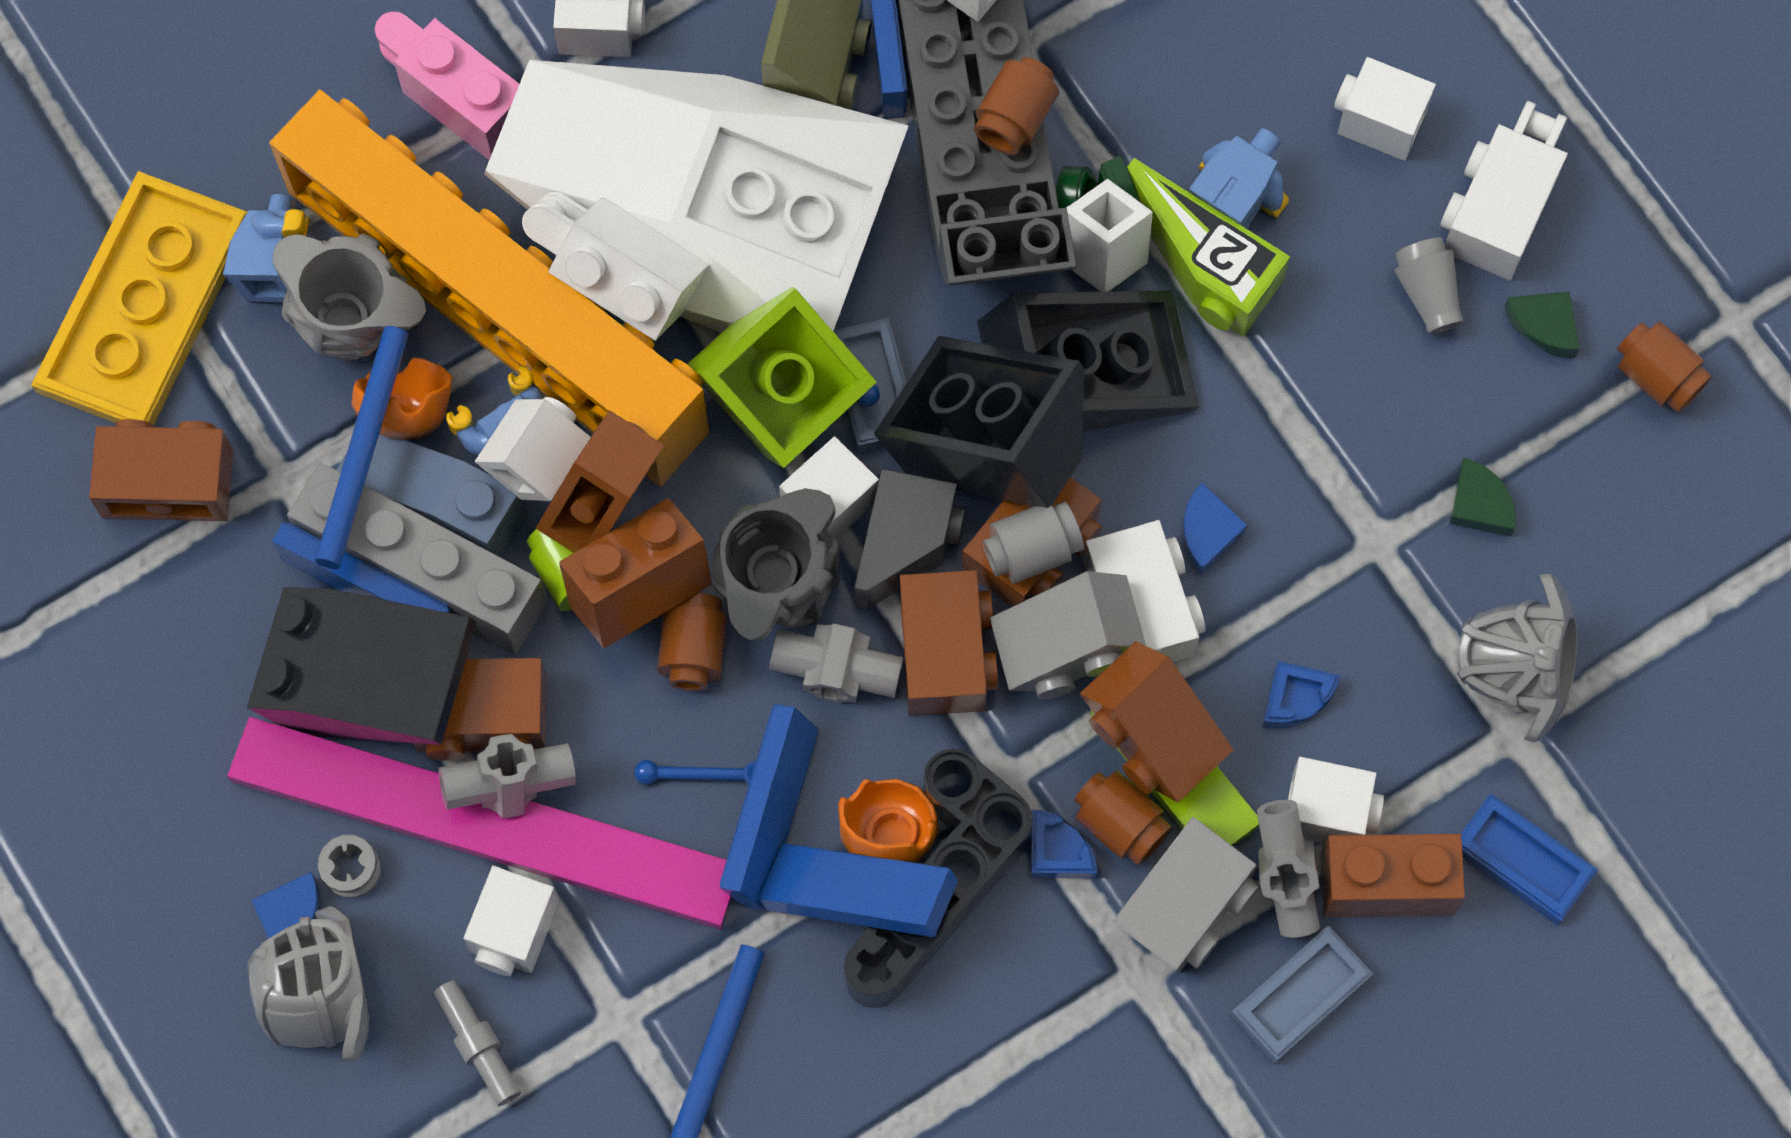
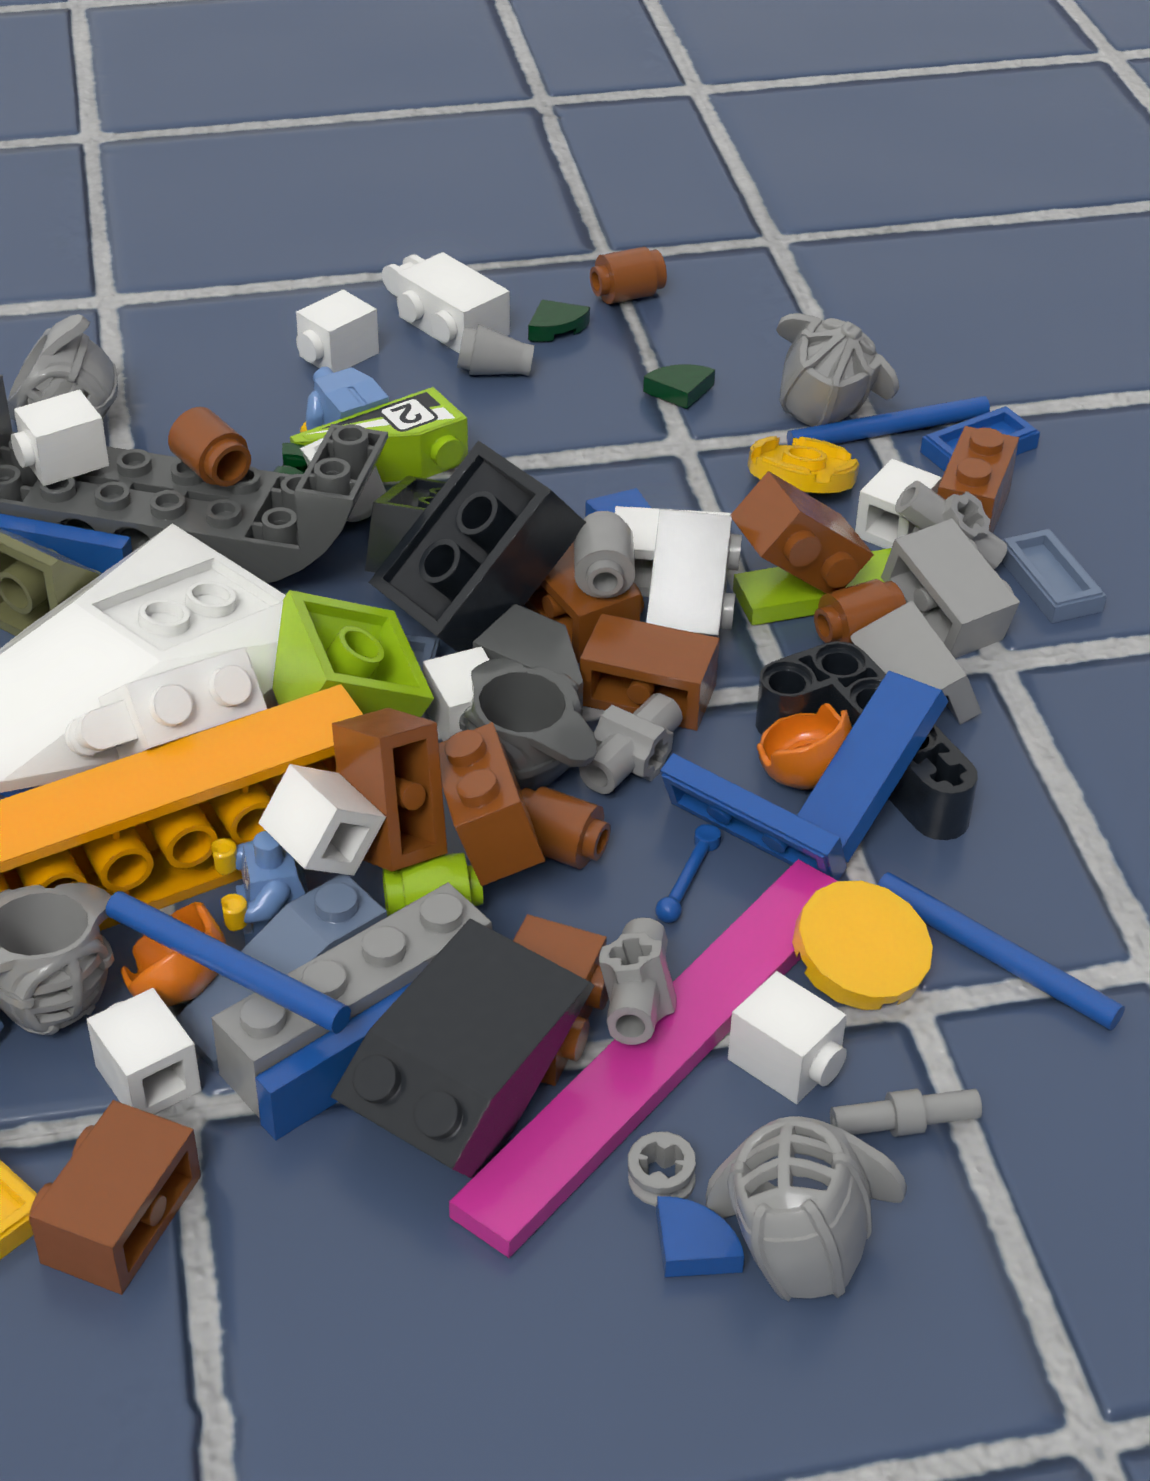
camera: 70 degrees left, 30 degrees down
(303, 422) = (144, 1053): none -> white brick
(649, 952) = (862, 944): none -> yellow tile
(1058, 895) = (911, 648): none -> light grey panel
(1365, 682) = (806, 464): none -> yellow tile
(1513, 751) = (894, 421): none -> blue bar

